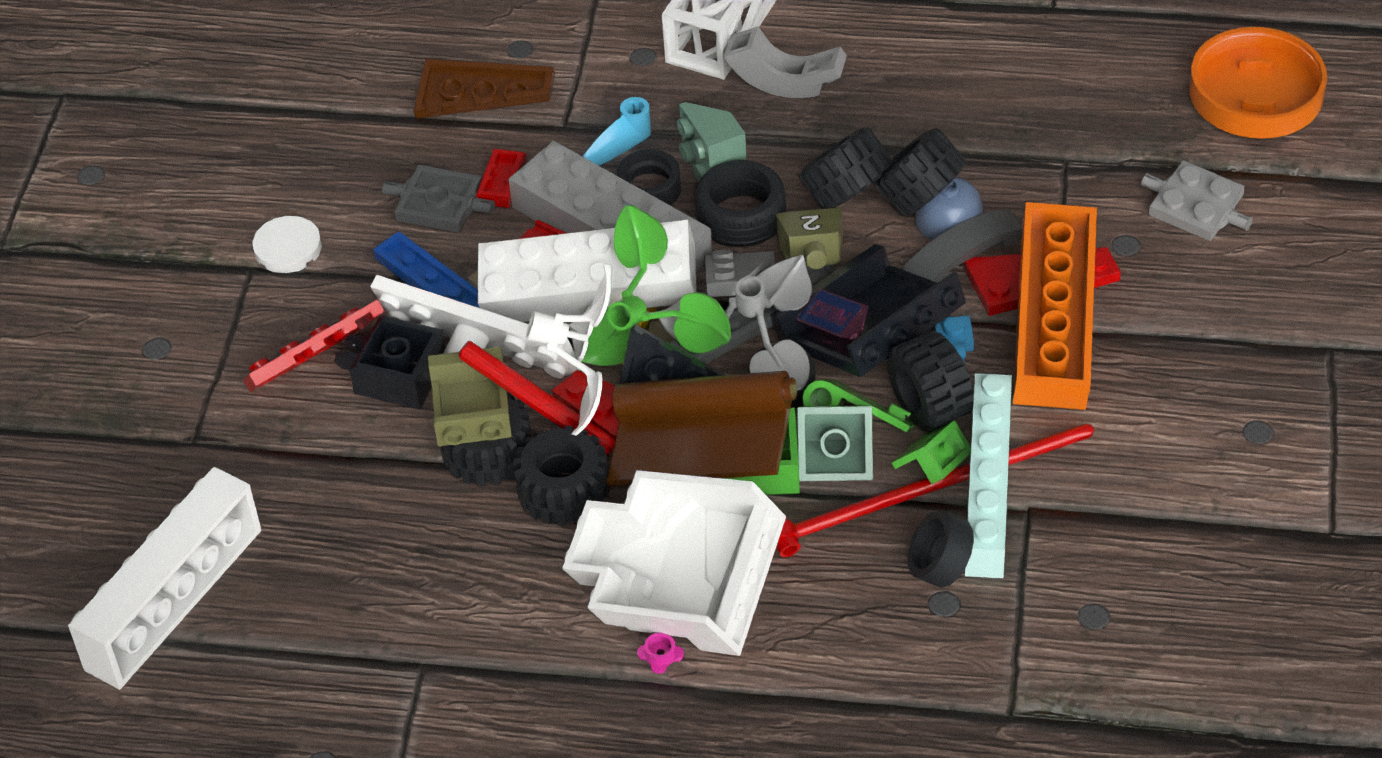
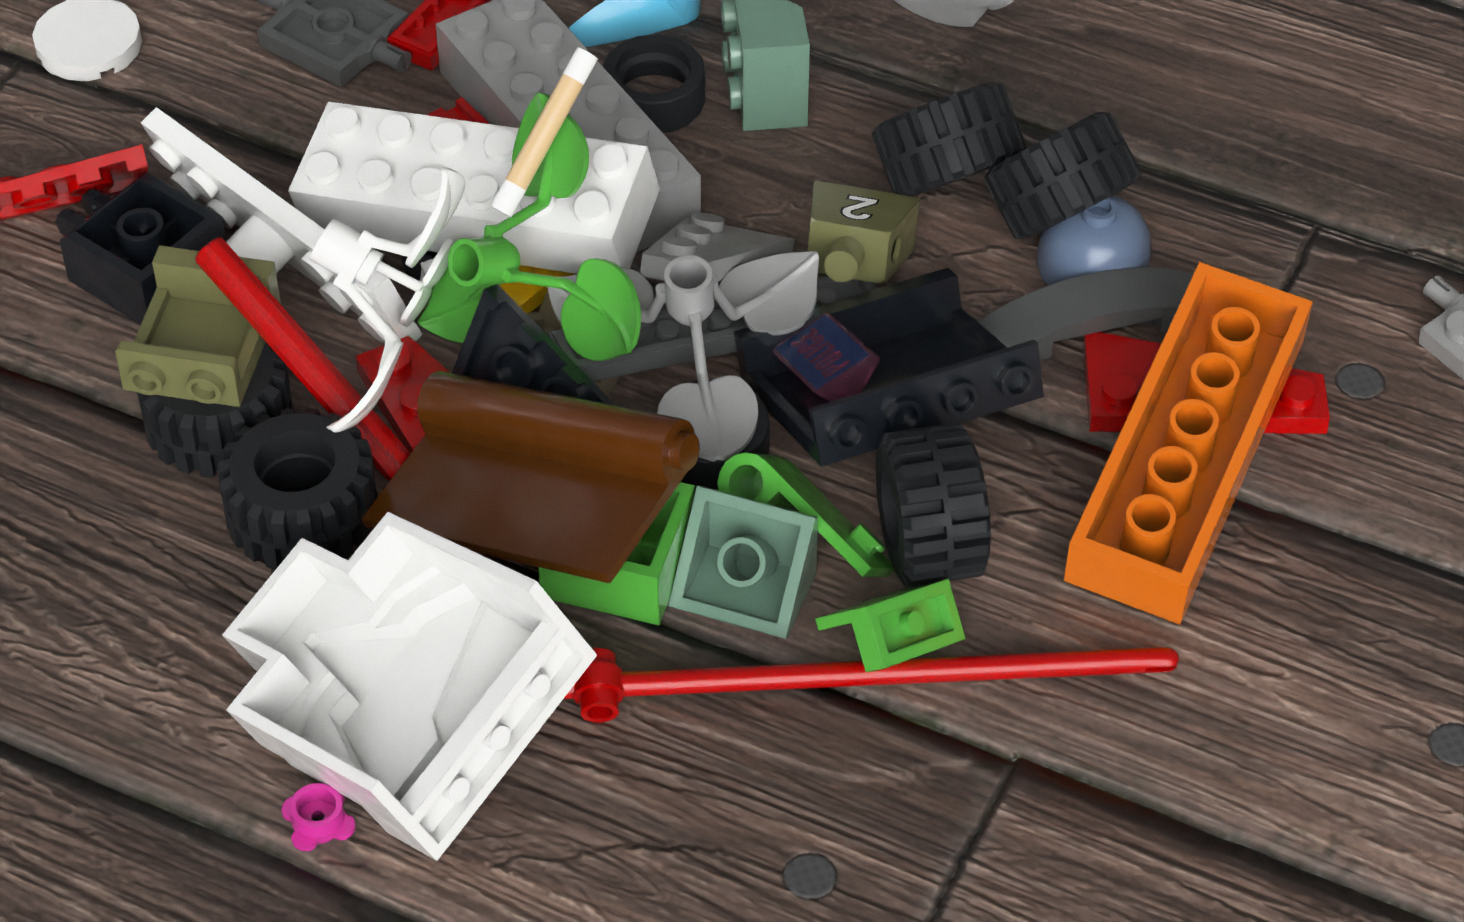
camera: 15 degrees right, 0 degrees up
(423, 270) = (253, 125): blue plate -> none
(638, 227) = (544, 132): none -> tan bar
(735, 180) = (765, 116): black tyre -> none
(940, 548) = (829, 782): black tyre -> none
(958, 332) = (1015, 449): dark azure plate -> none
(989, 474) = (938, 736): light aqua arch -> none

